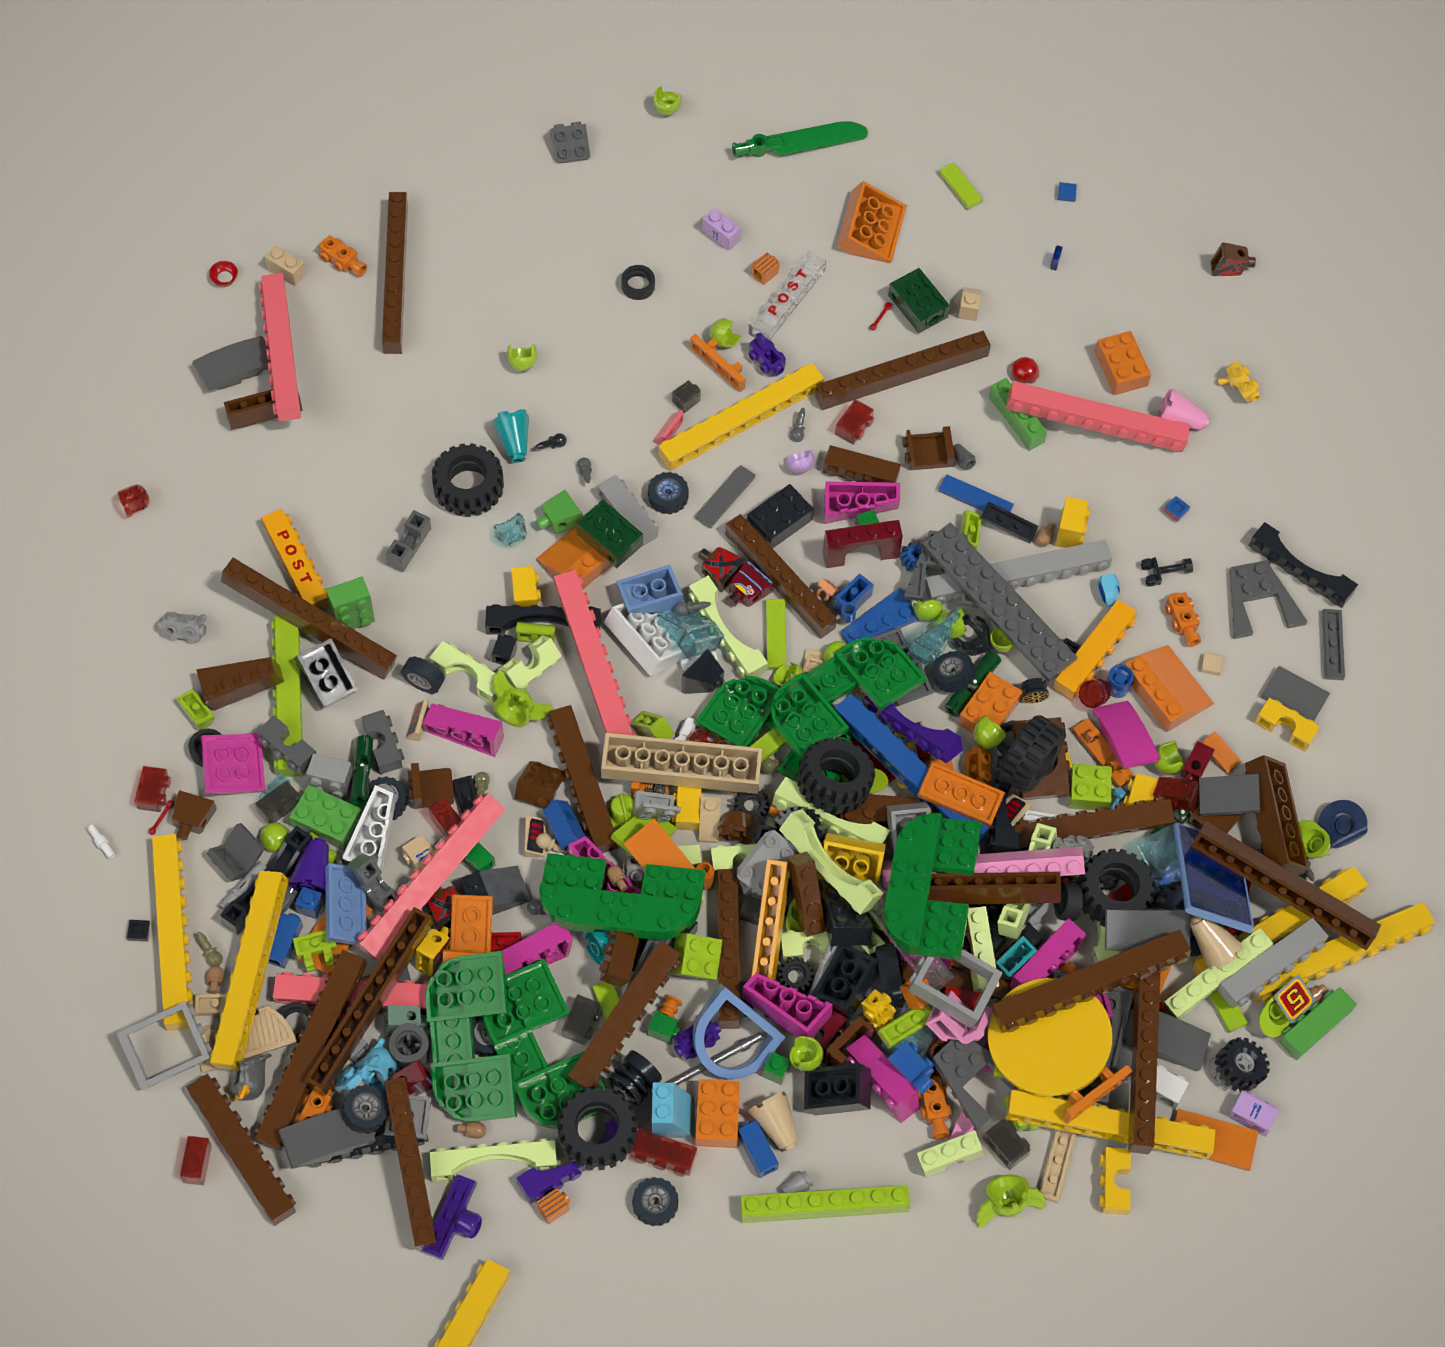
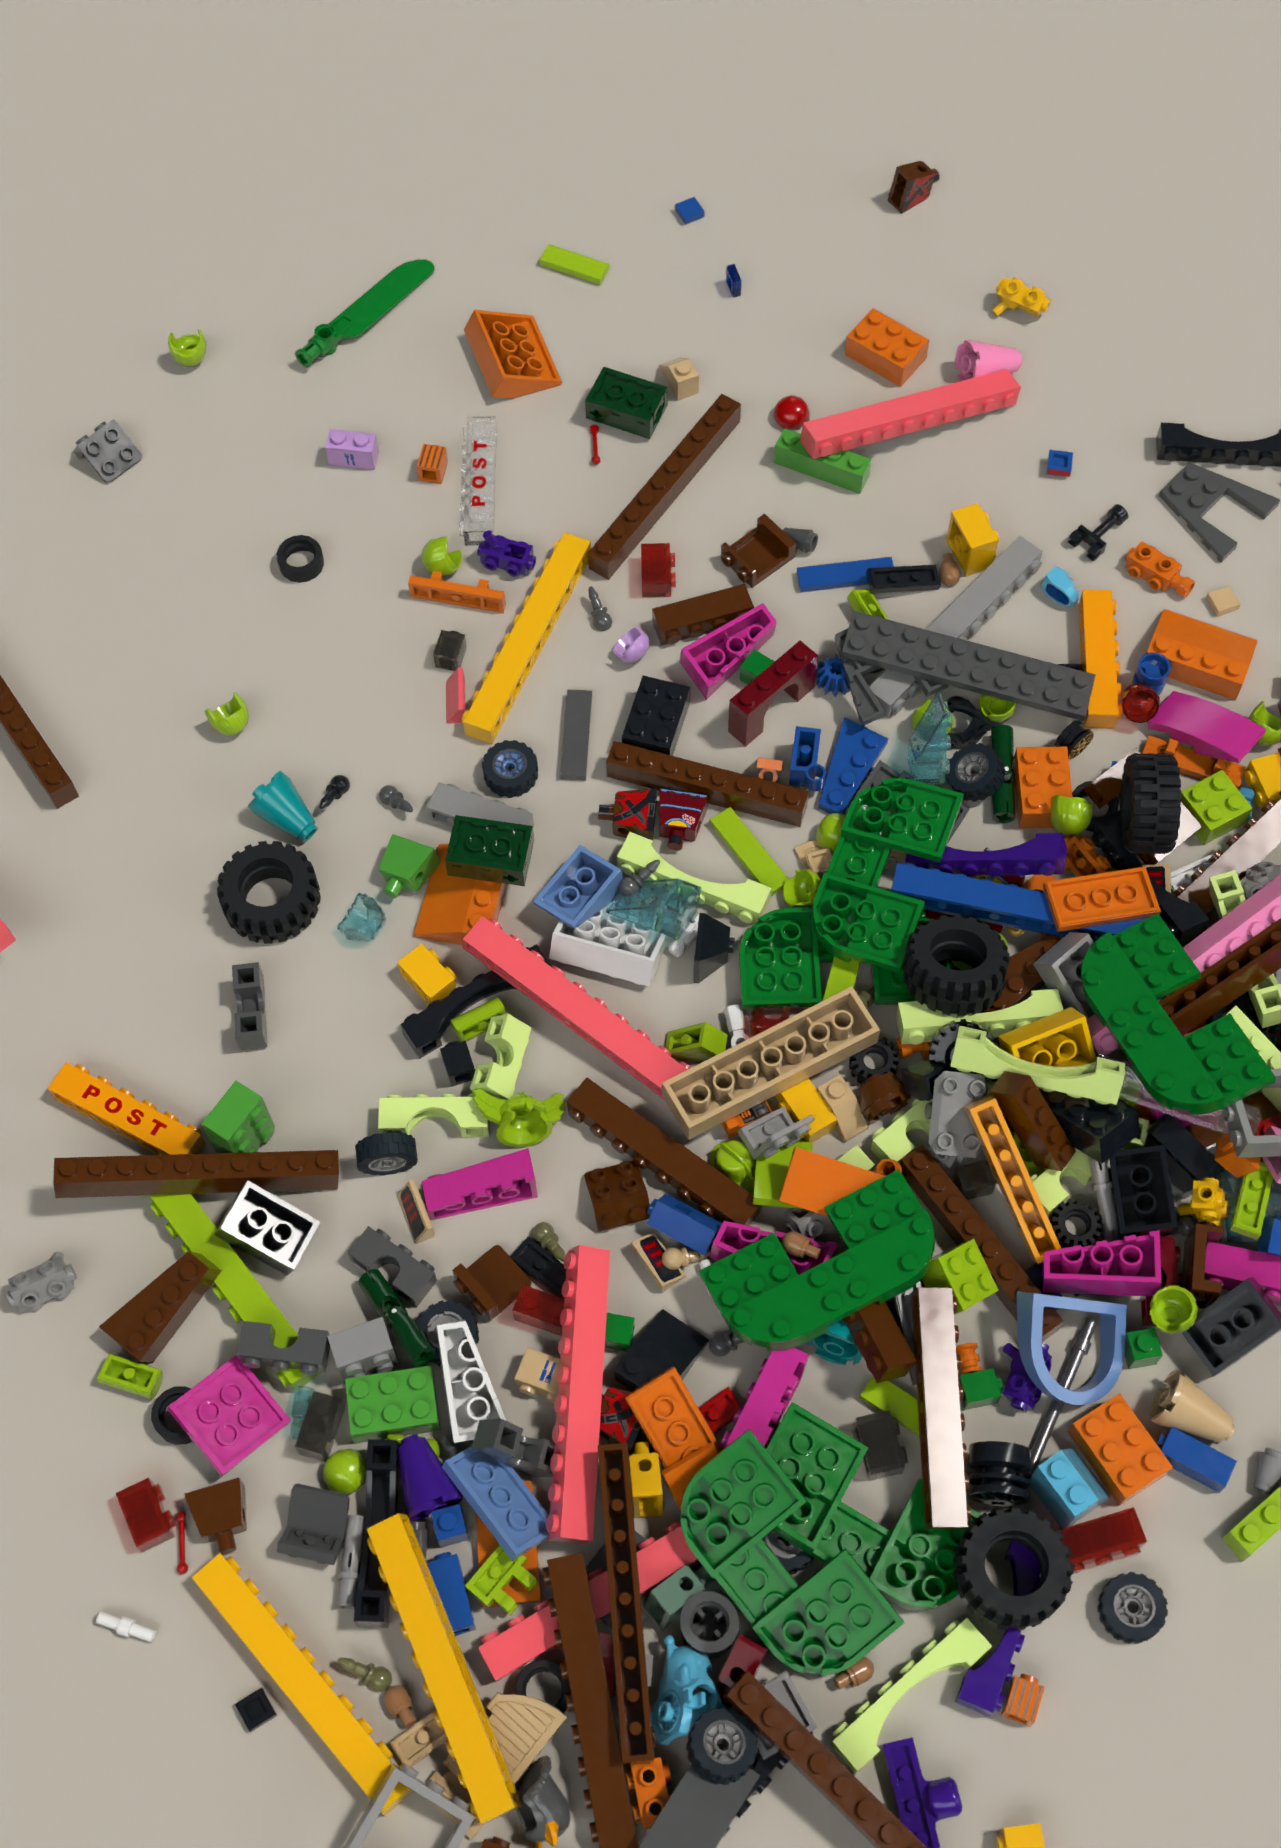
camera: 30 degrees left, 0 degrees up
(928, 610) = (895, 724): lime hair -> none

